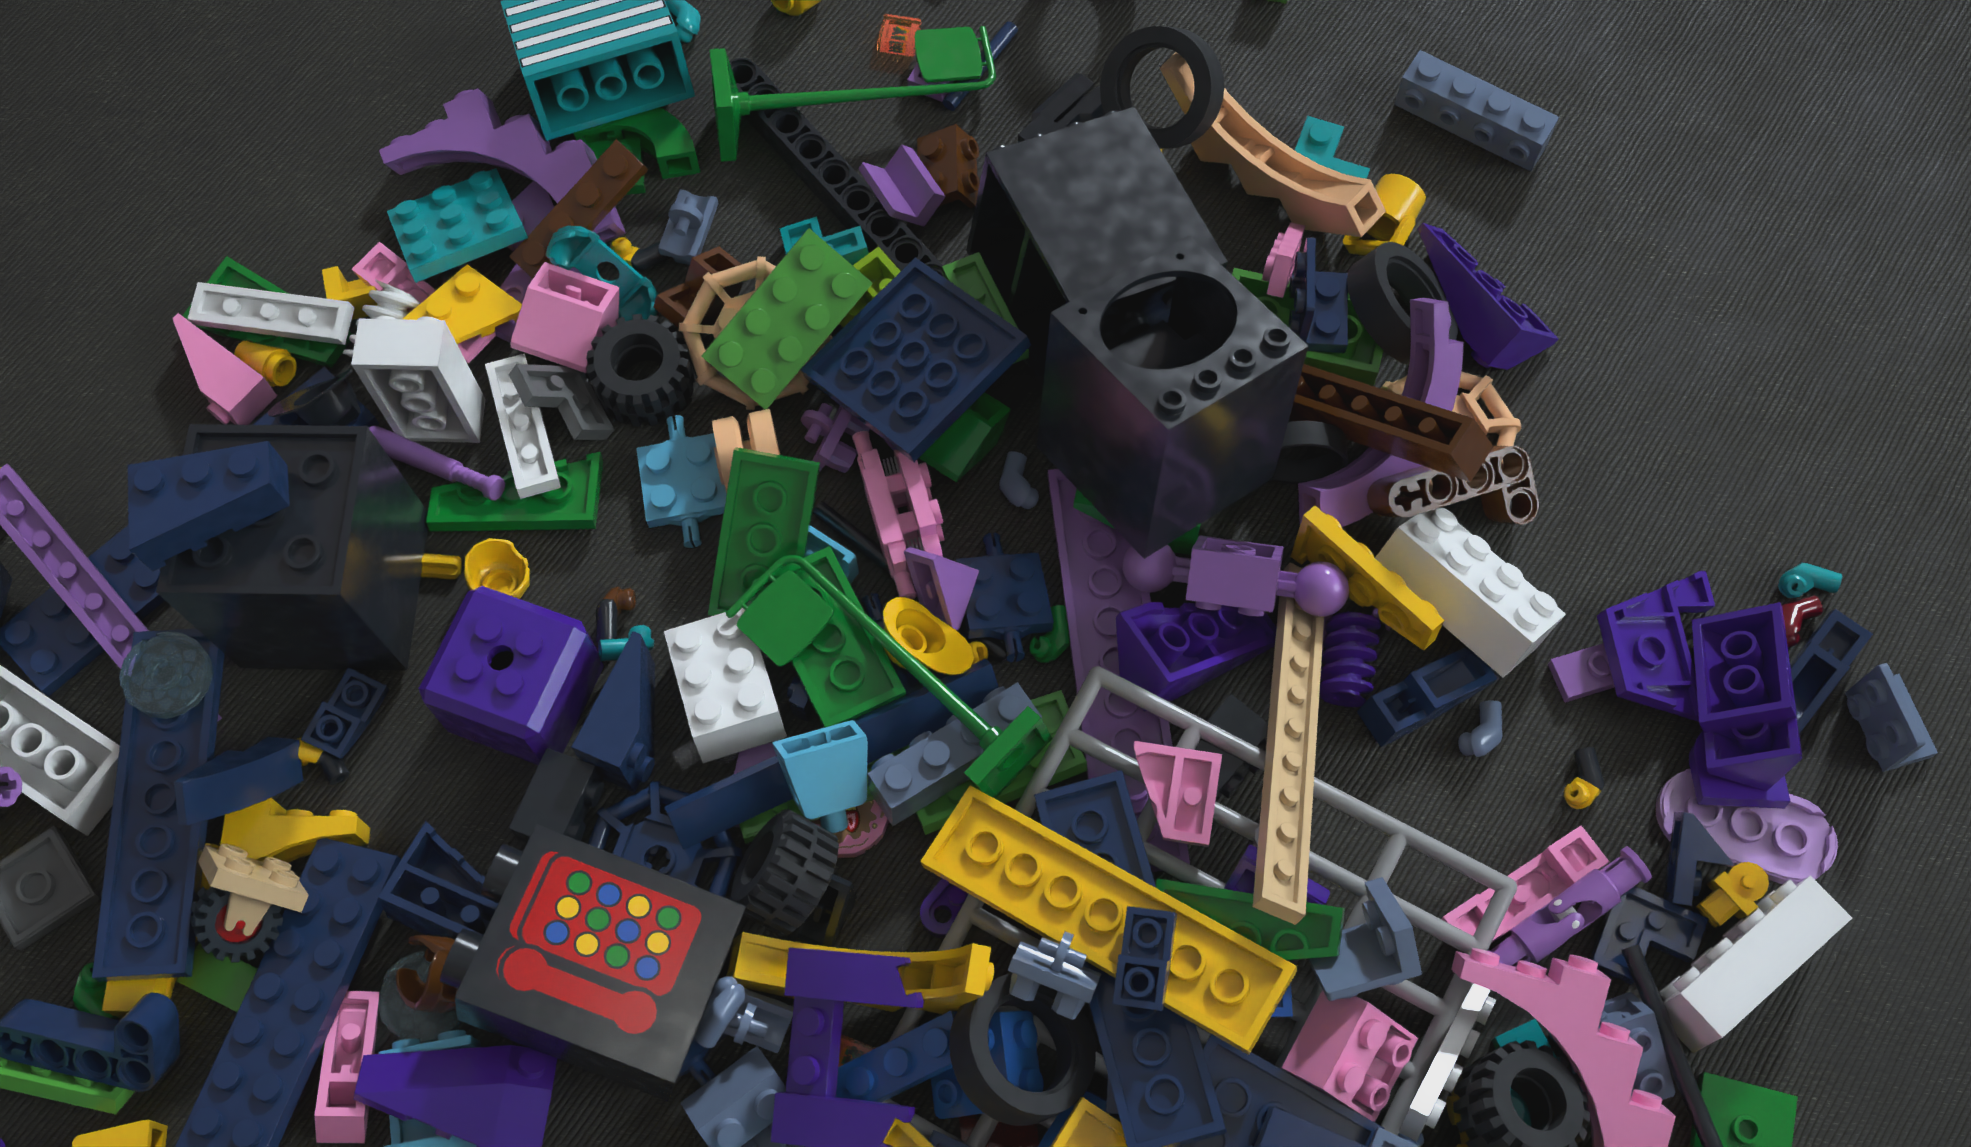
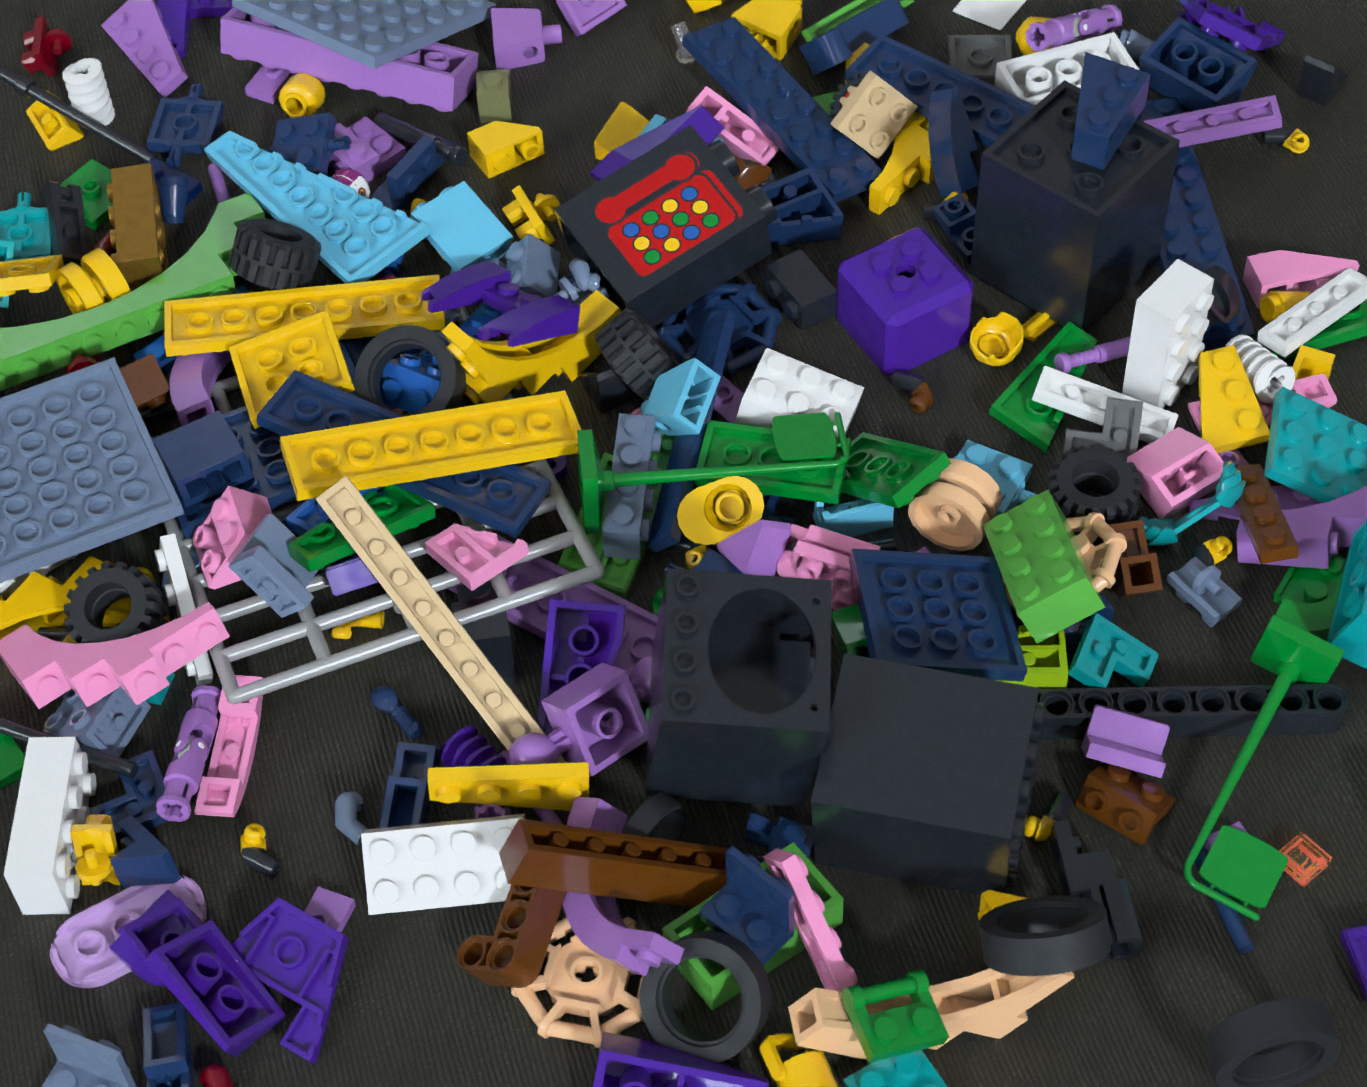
camera: 130 degrees right, 15 degrees down
(612, 648) = (875, 381): teal arm -> none
(622, 720) = (820, 337): dark blue slope -> none
(1056, 968) = (427, 392): sand blue hips -> none
(1145, 958) = (380, 427): dark blue slope -> none
(1310, 152) = (896, 1029): none -> green plate
(1353, 780) = (387, 701): none -> dark blue piece

